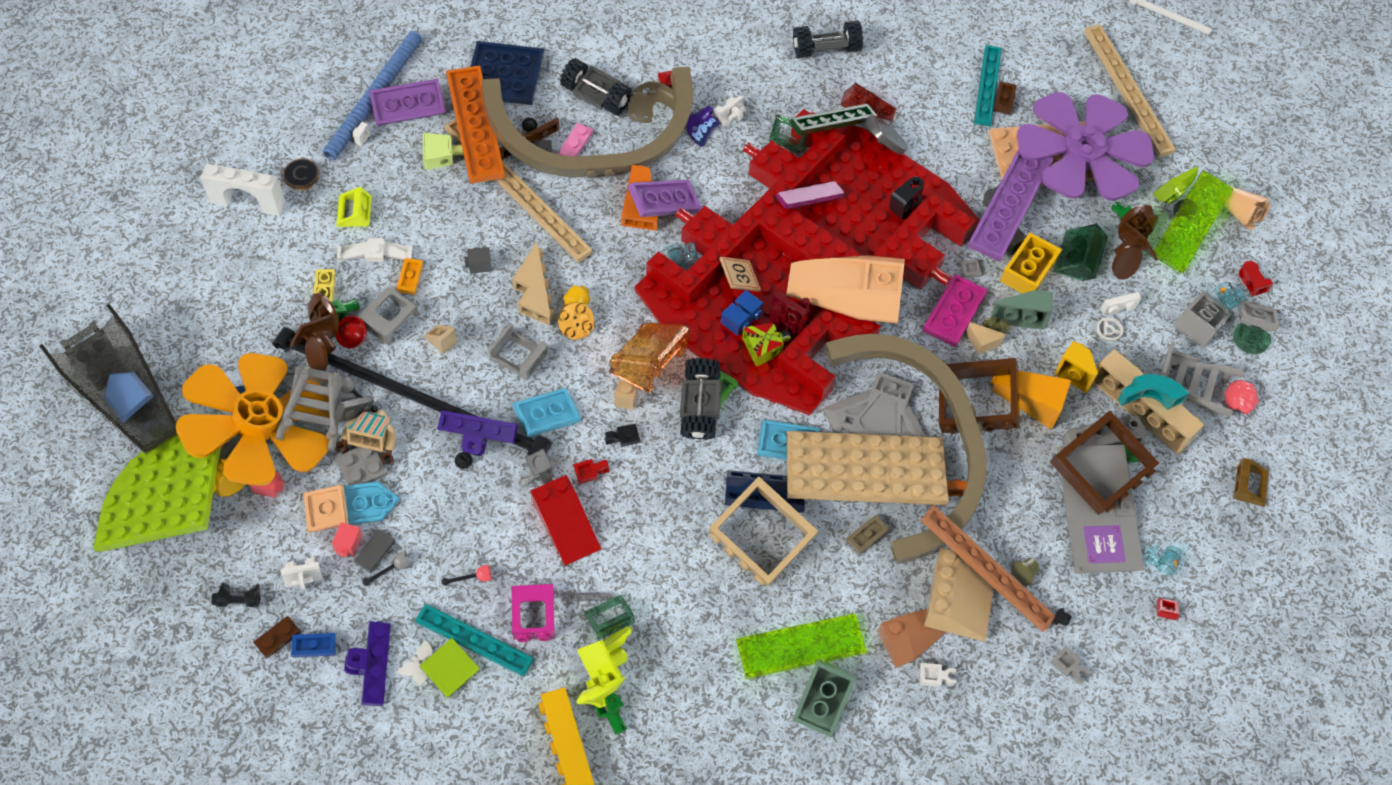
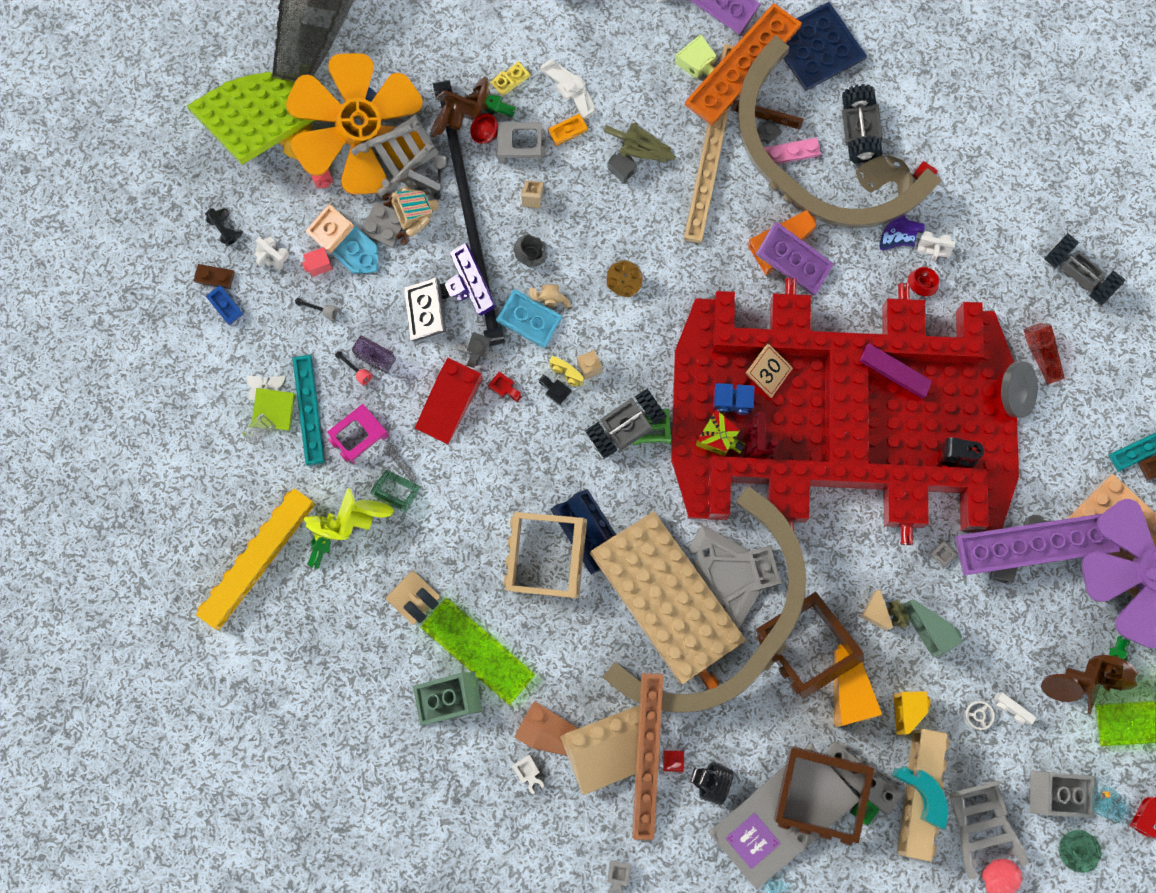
camera: 60 degrees right, 15 degrees up
(126, 394) = (313, 24): medium blue tile -> none
(361, 208) = (596, 48): neon yellow tile -> none
(371, 663) = (239, 354): dark purple plate -> none
(374, 551) = (325, 287): dark grey tile -> none
(460, 691) = (258, 430): none -> clear brick
(468, 484) = (425, 309): none -> tile
(472, 234) = (641, 144): none -> olive bar
(474, 549) = (373, 354): none -> clear purple brick
(488, 372) = (529, 250): none -> dark grey hair
(529, 124) = (782, 104): black piece -> none
(530, 364) = (558, 275): light grey window -> none
(531, 282) = (636, 218): tan slope -> none
(541, 384) = (549, 296): none -> tan piece
(577, 294) = (648, 263): yellow head -> none
(622, 413) = (572, 376): none -> light yellow slope
(649, 352) = (635, 354): clear orange windscreen -> none
(677, 254) = (751, 309): clear light blue piece -> none
(719, 664) = (413, 598): none -> tan plate
(753, 134) = (924, 281): none -> red hat
(774, 438) = (644, 503): medium azure tile -> none
(785, 141) = (942, 311): clear green tile -> none
(831, 119) = (988, 334): plate -> none
(851, 286) = (826, 467): light nougat wedge -> none
(867, 534) = (612, 638): dark tan plate -> none
(955, 310) = (887, 568): dark pink plate -> none
(1002, 557) = (673, 761): none -> red tile
(1025, 571) = (676, 789): olive piece -> none
(1030, 264) = (987, 604): yellow brick -> none
(1043, 538) = (713, 782): none -> black piece
(1062, 617) = (657, 844): black piece -> none
(1081, 252) = (1041, 640): clear green slope -> none
(1258, 315) = (1106, 844): light grey plate -> none

